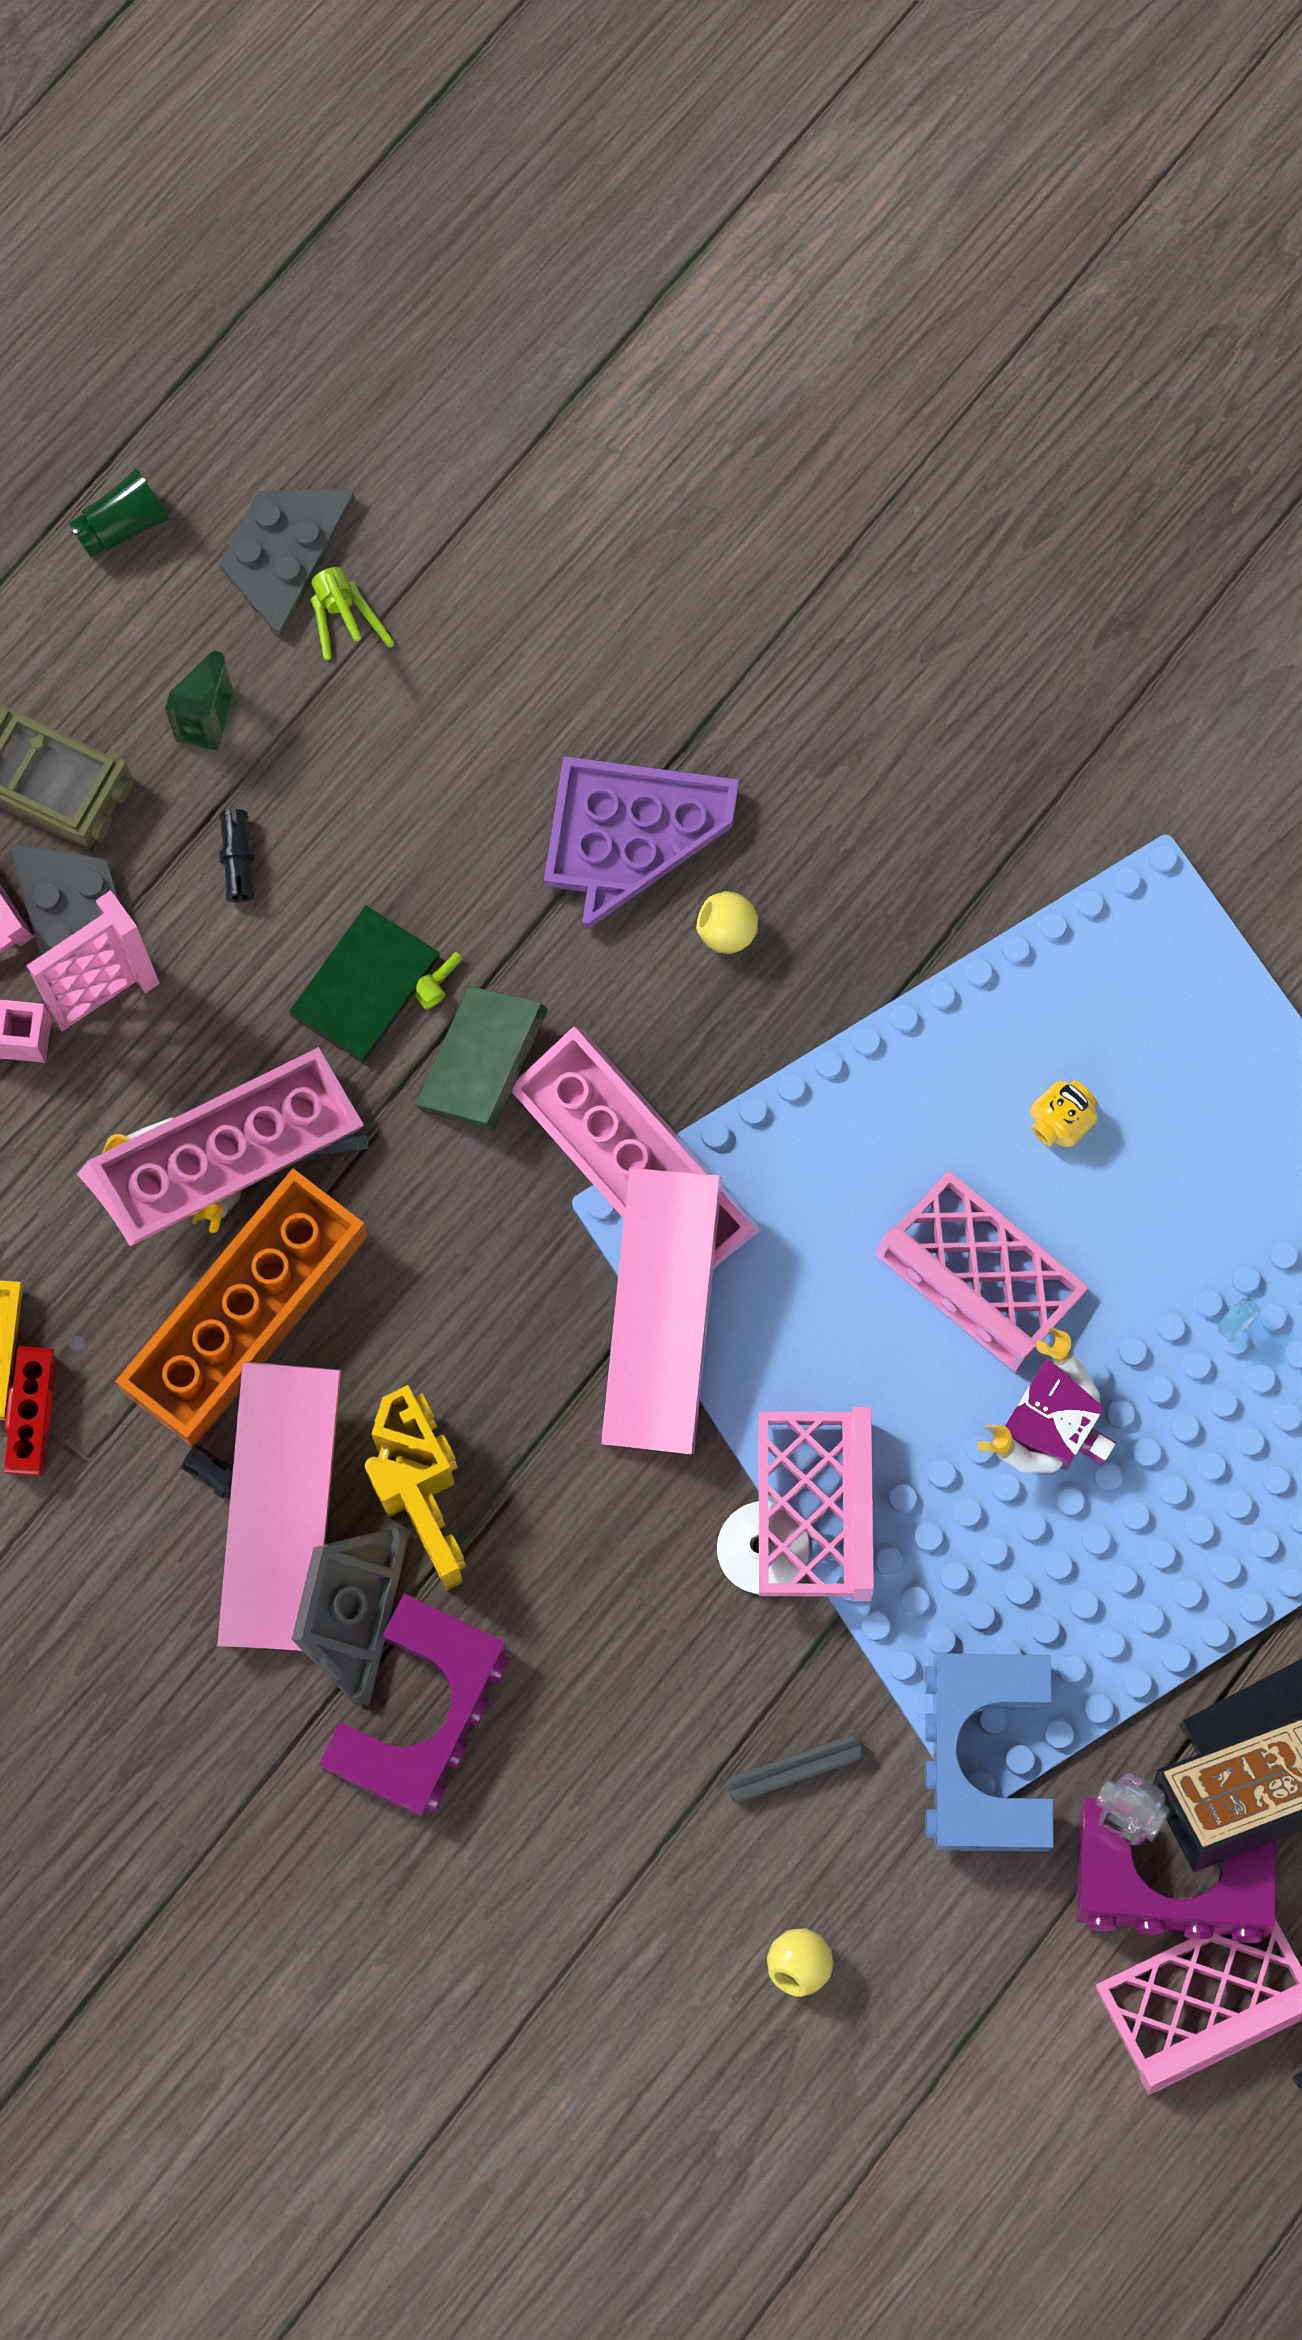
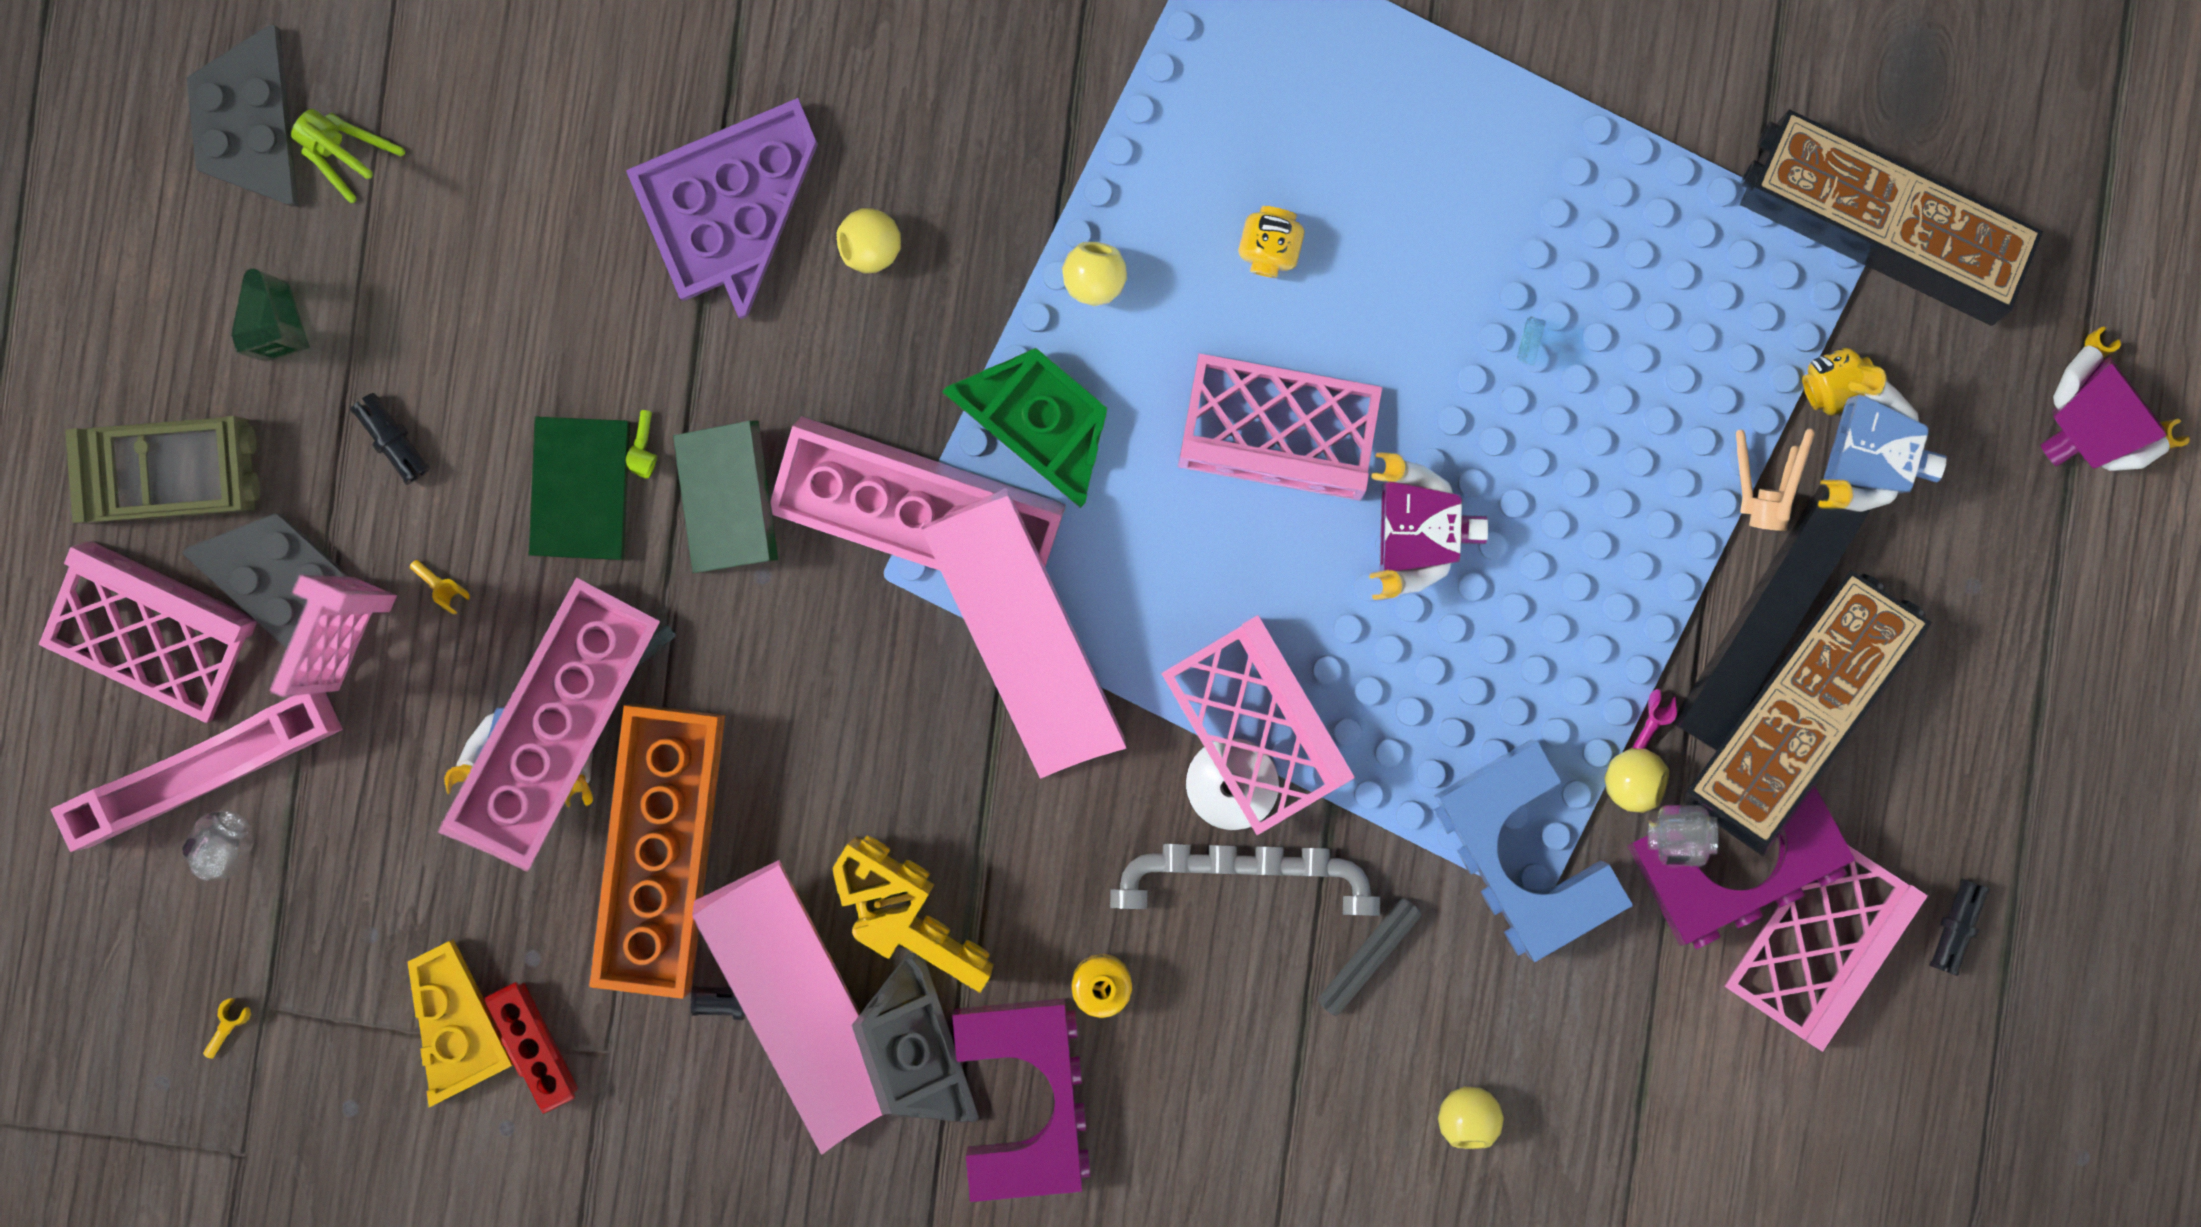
camera: 30 degrees left, 15 degrees up
(118, 515) = (73, 180): dark green plant -> none
(202, 998) = (442, 589): none -> yellow hand
(542, 1664) = (1113, 973): none -> yellow head
(753, 1632) = (1225, 861): none -> light grey bar
(781, 1142) = (1038, 417): none -> green wing
(899, 1052) = (1094, 273): none -> light yellow piece
(1120, 1748) = (1637, 780): none -> light yellow piece
(1163, 1711) = (1657, 717): none -> dark pink hand

